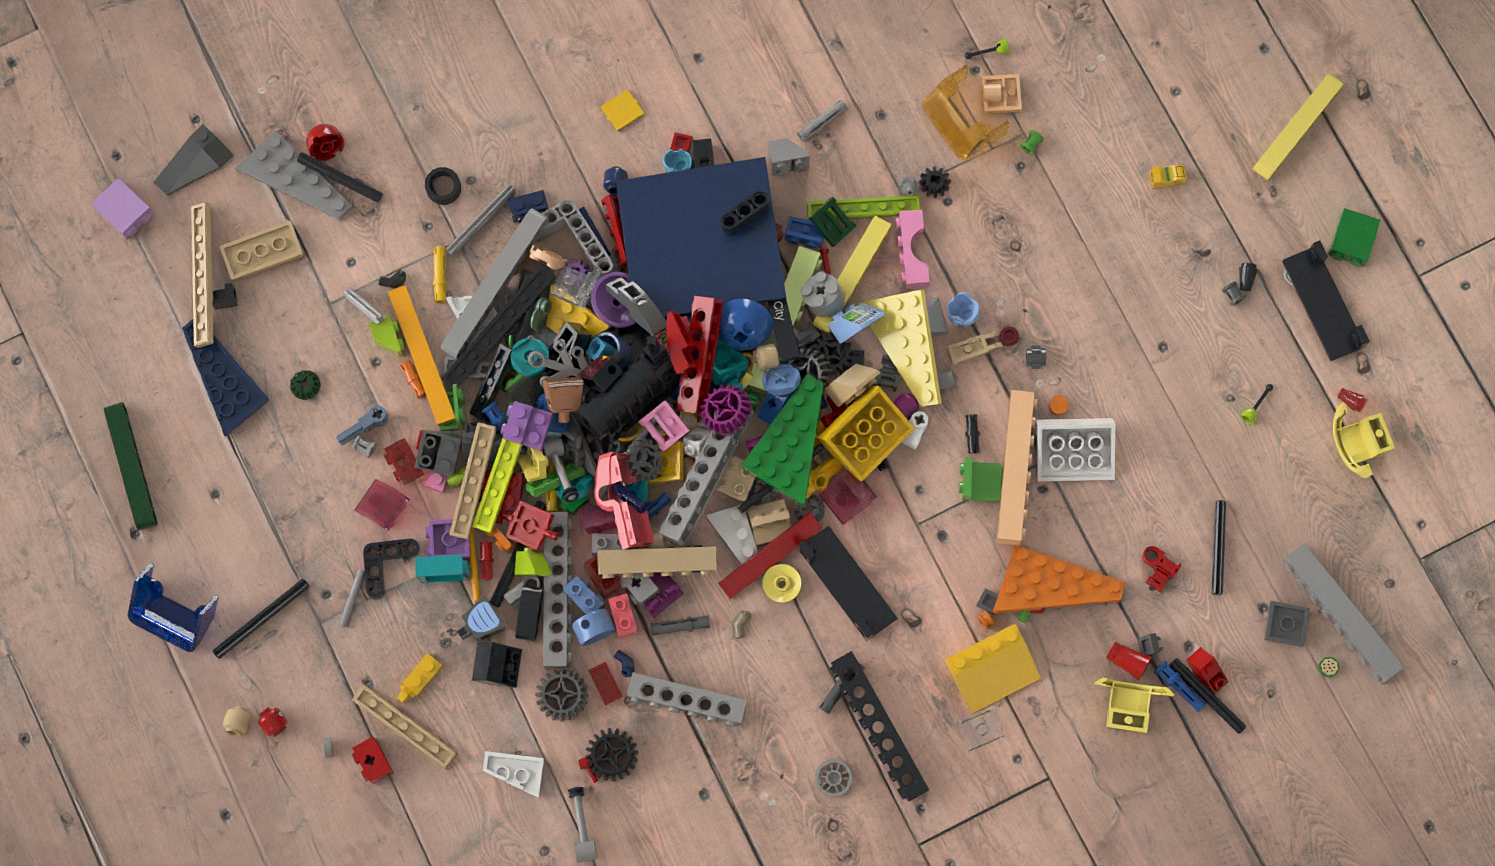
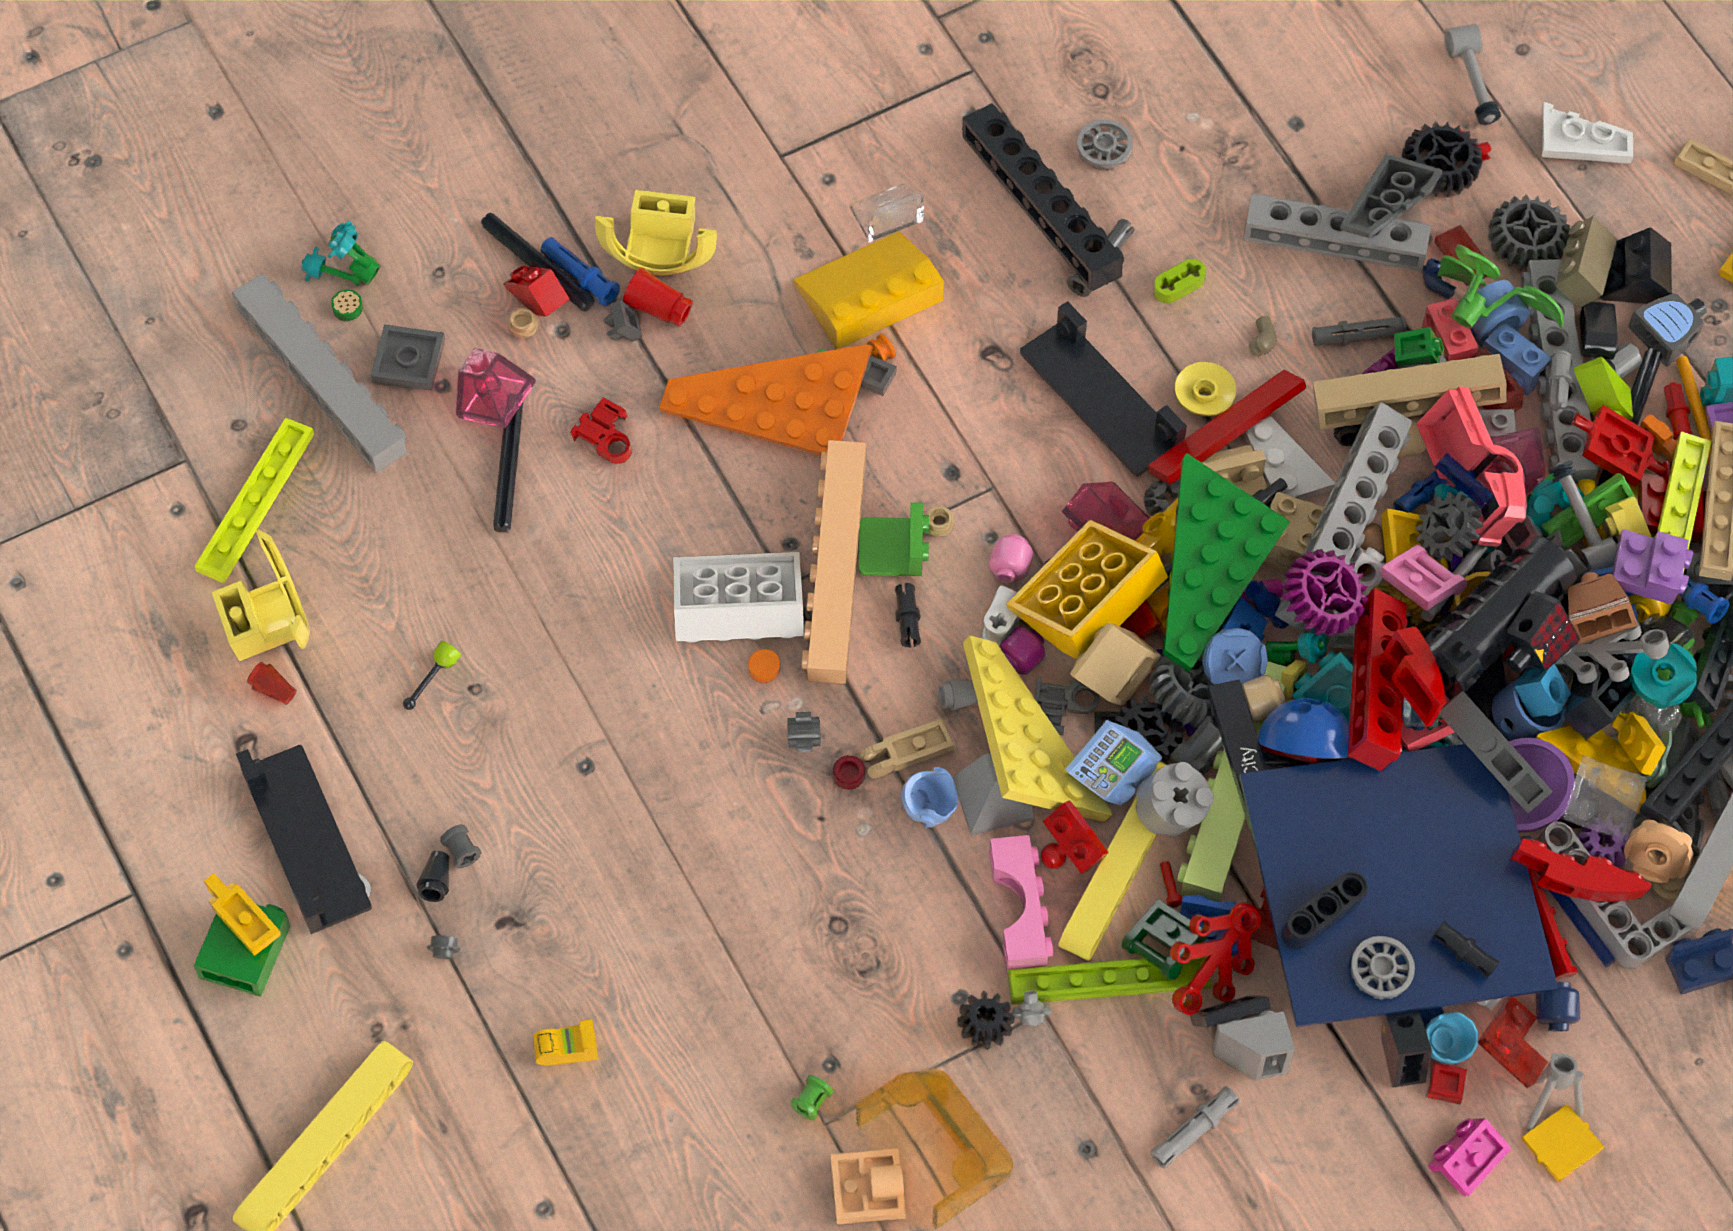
camera: 175 degrees right, 15 degrees down
(530, 661) = (1586, 261): none -> dark tan brick
(548, 319) = (1638, 741): none -> yellow hinge
(560, 570) = (1559, 380): none -> light grey axle
(590, 234) = (1592, 880): none -> red slope
(609, 619) = (1472, 303): none -> bright green plant
(622, 130) = (1560, 1074): none -> light grey plant
(647, 158) = (1506, 1042): none -> clear red plate
(647, 591) = (1417, 347): none -> green bracket
(647, 716) = (1389, 193): none -> dark grey wedge
(667, 195) = (1465, 949): none -> black pin
(675, 101) = (1470, 1154): none -> dark pink bracket
(714, 186) = (1382, 967): none -> light grey wheel
(757, 425) = (1266, 602): none -> clear blue pin
(789, 664) = (1177, 278): none -> lime beam
(792, 218) = (1218, 955): none -> red plant
(799, 176) = (1230, 1010): none -> black tile
(883, 282) = (1074, 840): none -> red plate
(909, 467) = (1011, 558): none -> bright pink head
(953, 492) = (942, 514): none -> tan plate
(1215, 648) = (523, 323): none -> tan plate
(1232, 593) = (490, 388): none -> clear pink slope
(1239, 235) = (443, 946): none -> dark grey plate
(1335, 694) = (342, 243): none -> plant
(1357, 243) = (241, 914): none -> yellow hinge
(1374, 524) = (254, 500): none -> neon yellow plate

